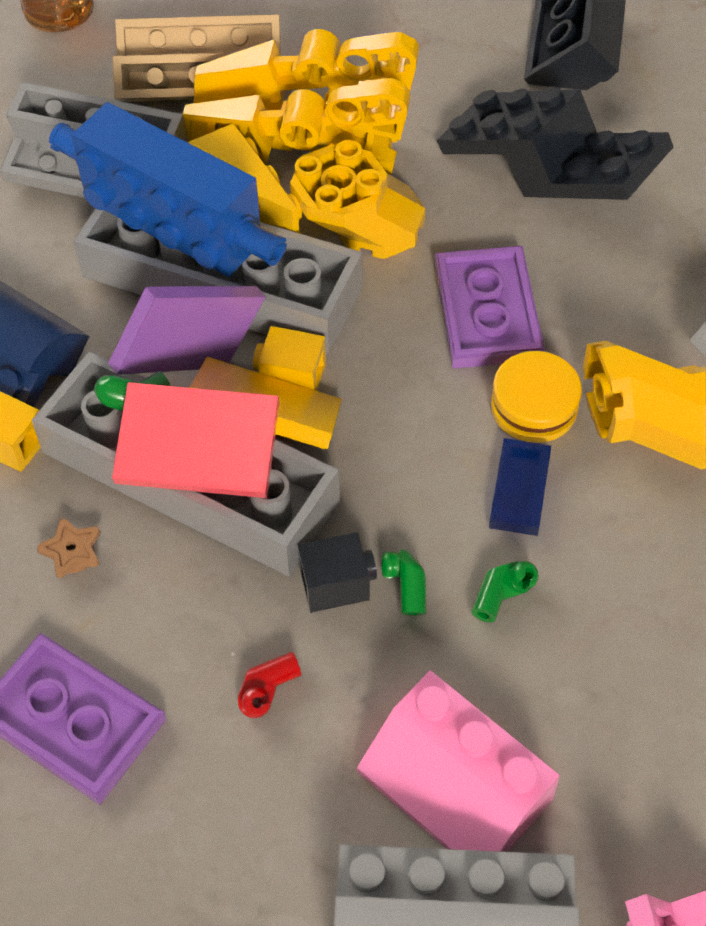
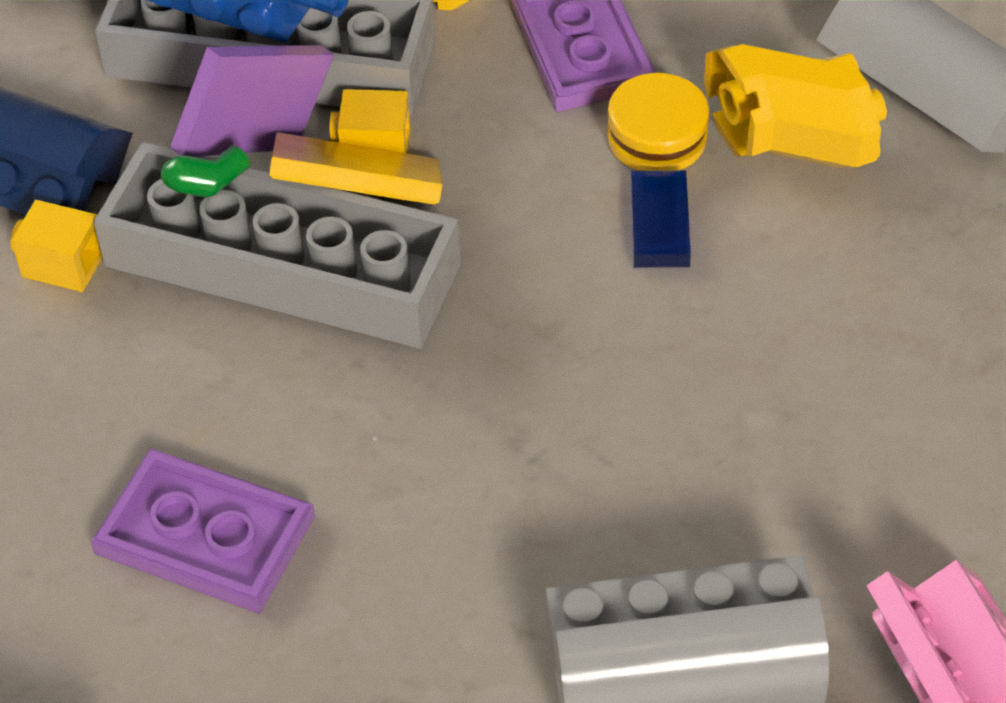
camera: 10 degrees left, 5 degrees down
(74, 560) = (168, 371): medium nougat plate -> none
(196, 440) = (292, 208): coral tile -> none
(262, 681) = (416, 456): red arm -> none
(336, 571) = (474, 332): black brick -> none
(411, 578) = (560, 326): green arm -> none
(457, 770) = (653, 500): bright pink slope -> none
(501, 584) = (663, 317): green arm -> none

